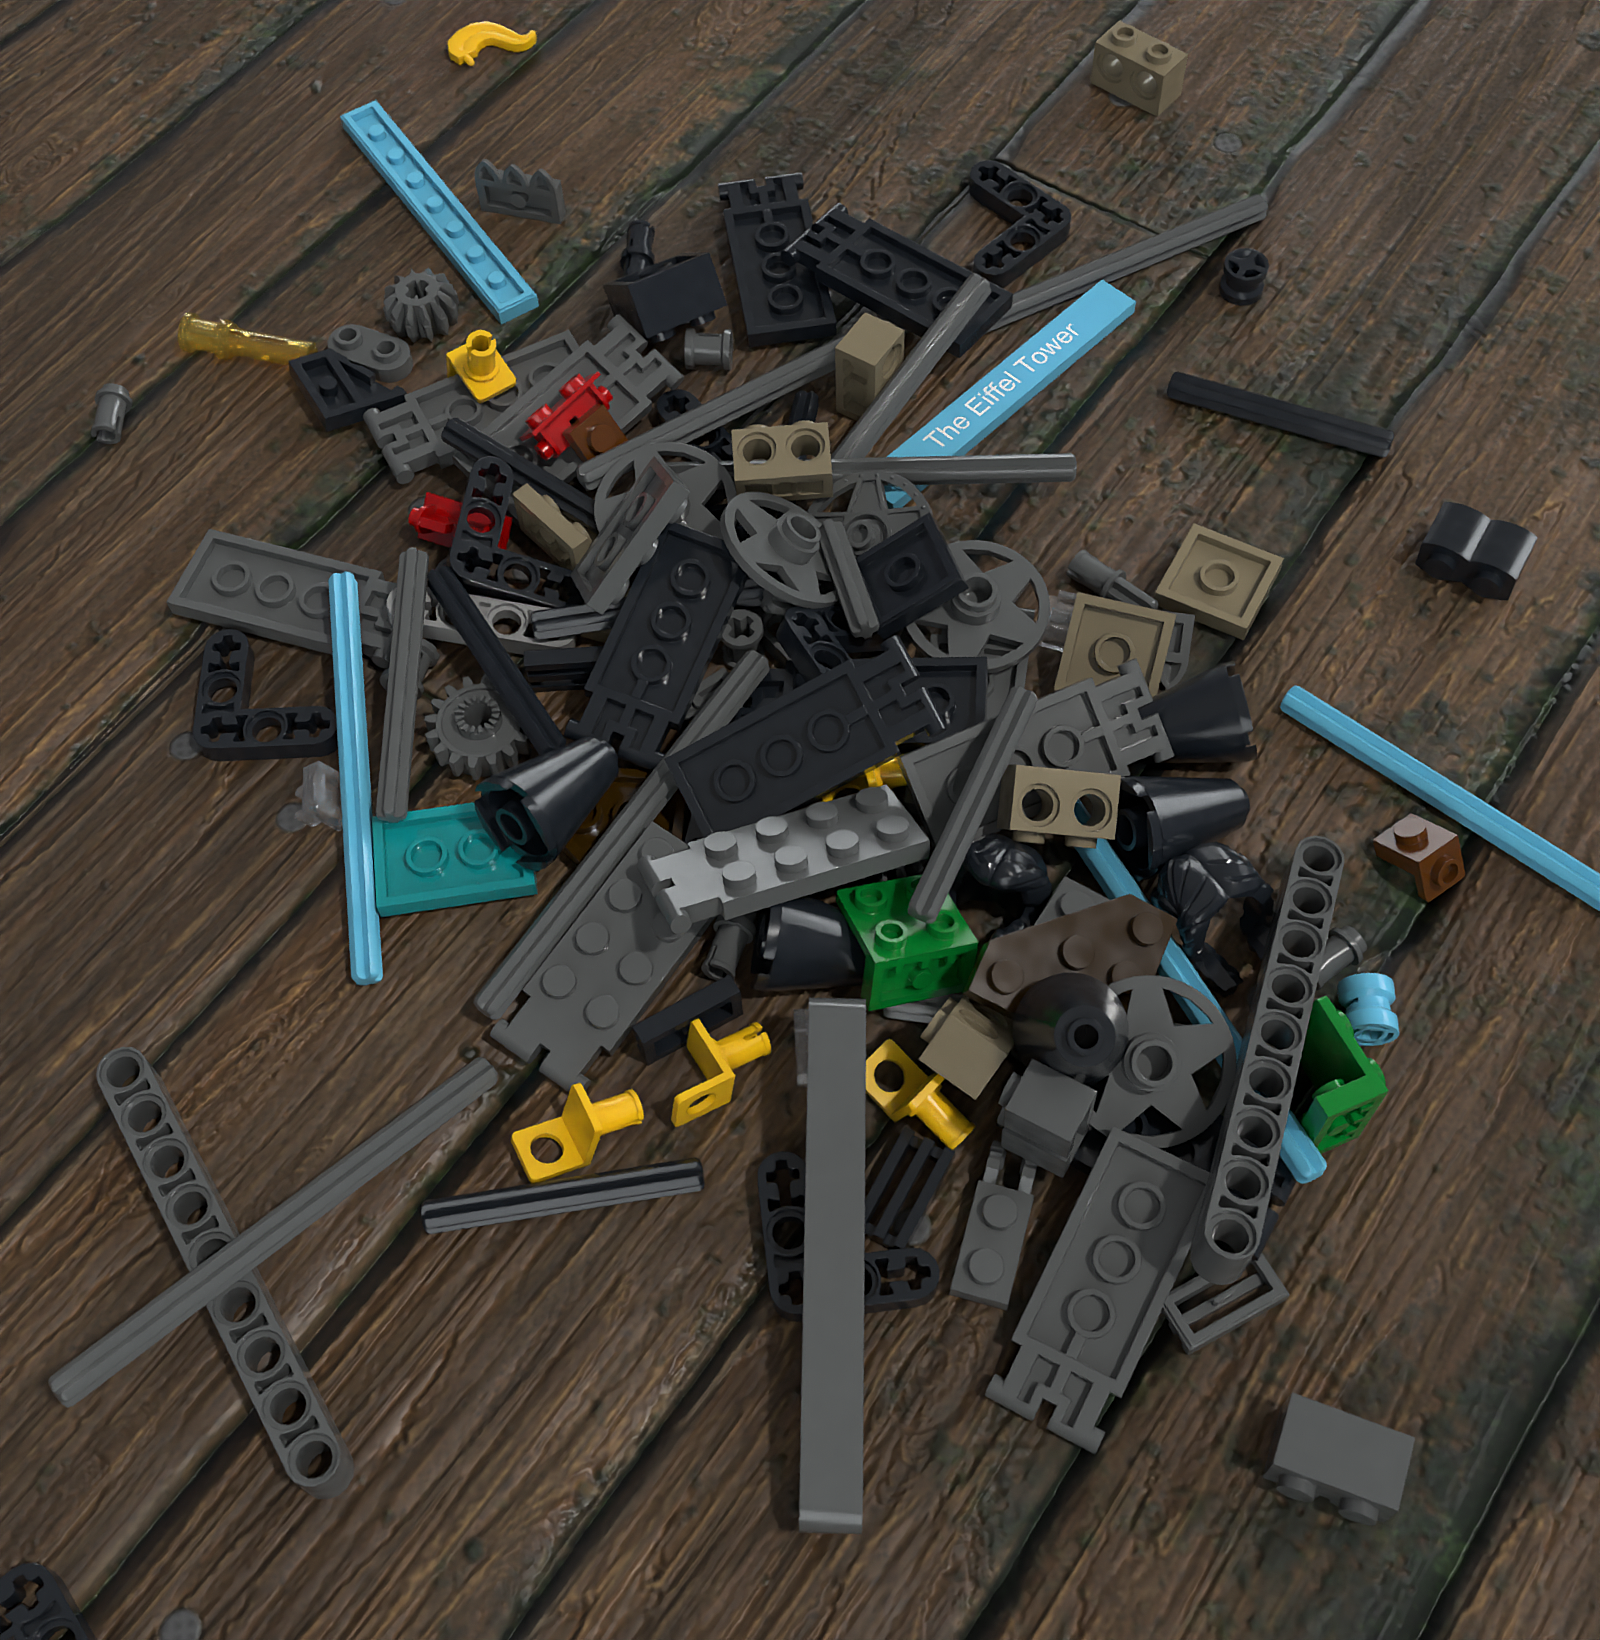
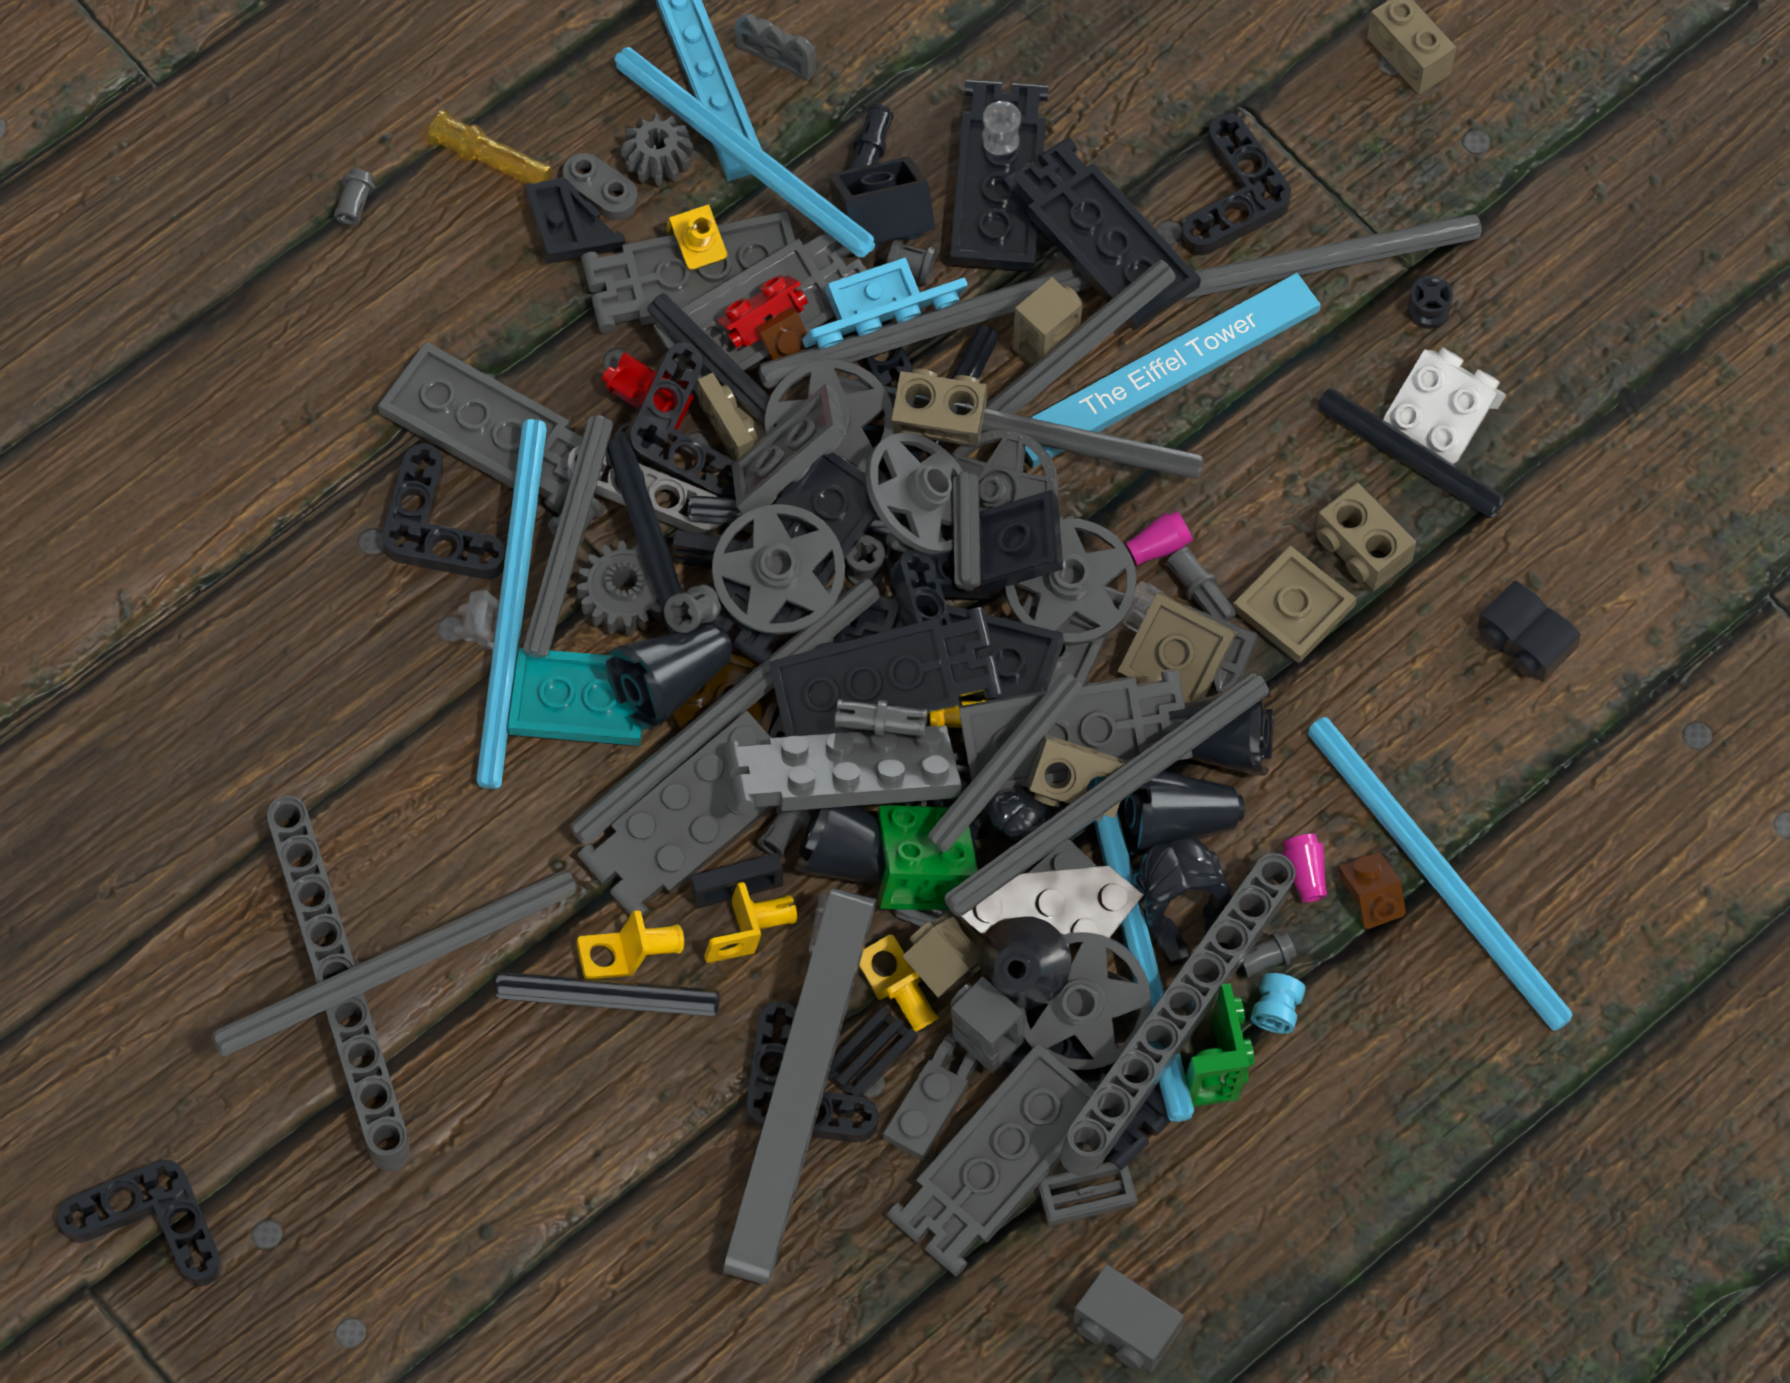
camera: 10 degrees right, 5 degrees up
(517, 281) = (745, 152): none -> medium azure axle
(560, 722) = (685, 606): none -> dark grey bush
(650, 658) = (778, 569): none -> dark grey wheel
(686, 376) = (877, 296): none -> medium azure bracket
(767, 207) = (996, 123): none -> clear bush
(813, 787) = (881, 718): none -> dark grey pin
(1056, 545) = (1160, 538): none -> dark pink cone
(1097, 819) = (1106, 795): none -> dark grey axle
(1267, 498) = (1374, 531): none -> dark tan brick
(1297, 358) = (1443, 403): none -> white bracket
(1342, 832) = (1309, 866): none -> dark pink cone

